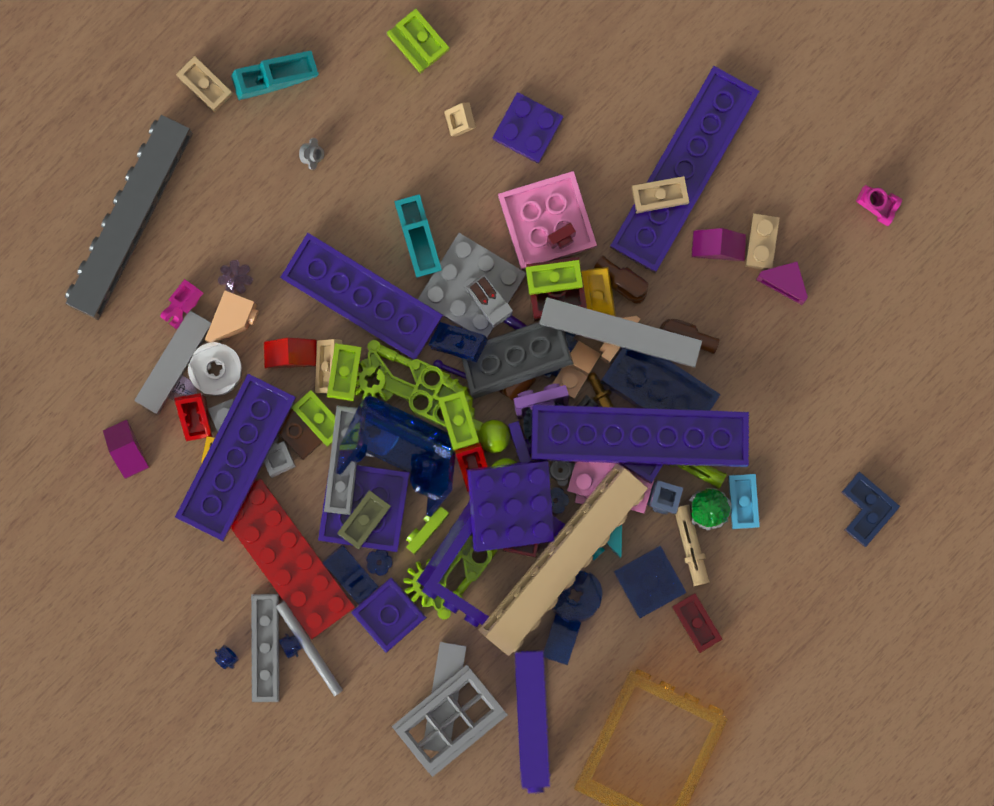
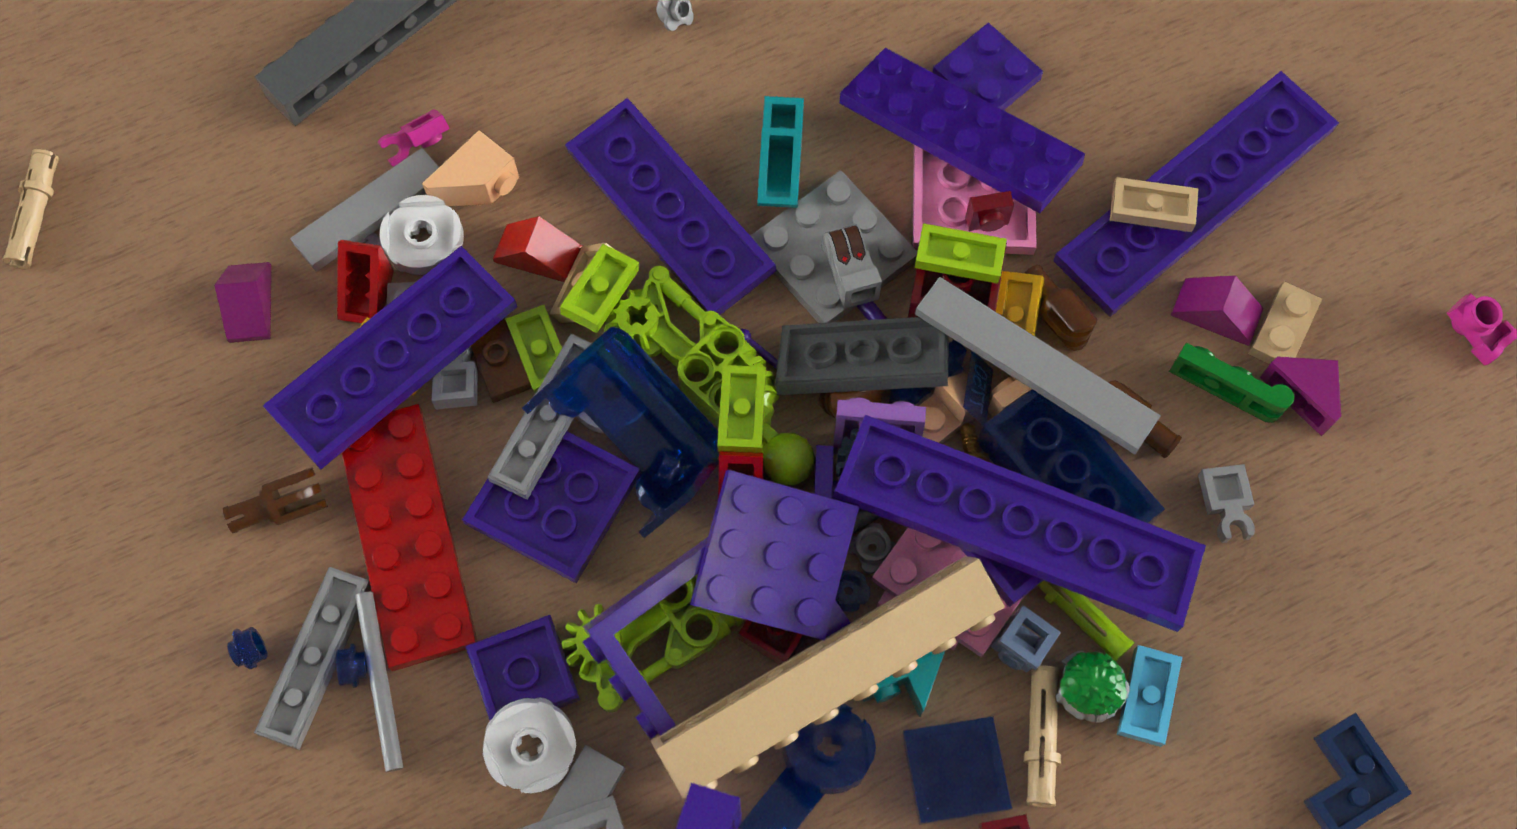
camera: 20 degrees right, 15 degrees down
(205, 567) = (270, 504): none -> reddish brown arm
(238, 280) = (506, 128): plant -> none
(350, 574) = (490, 590): clear blue slope -> none
(364, 520) = (542, 509): olive plate -> none
(372, 562) = (547, 597): clear blue plate -> none
(409, 639) = (520, 769): none -> white plate
(419, 537) = (618, 571): lime plate -> none
(458, 342) = (785, 309): clear blue plate -> none
(460, 119) = (896, 28): tan plate -> none
(525, 180) = (962, 129): none -> dark purple plate
(591, 356) = (978, 388): none -> clear blue sticker
(740, 293) = (1232, 383): none -> green plate
(755, 364) = (1229, 494): none -> light grey plate

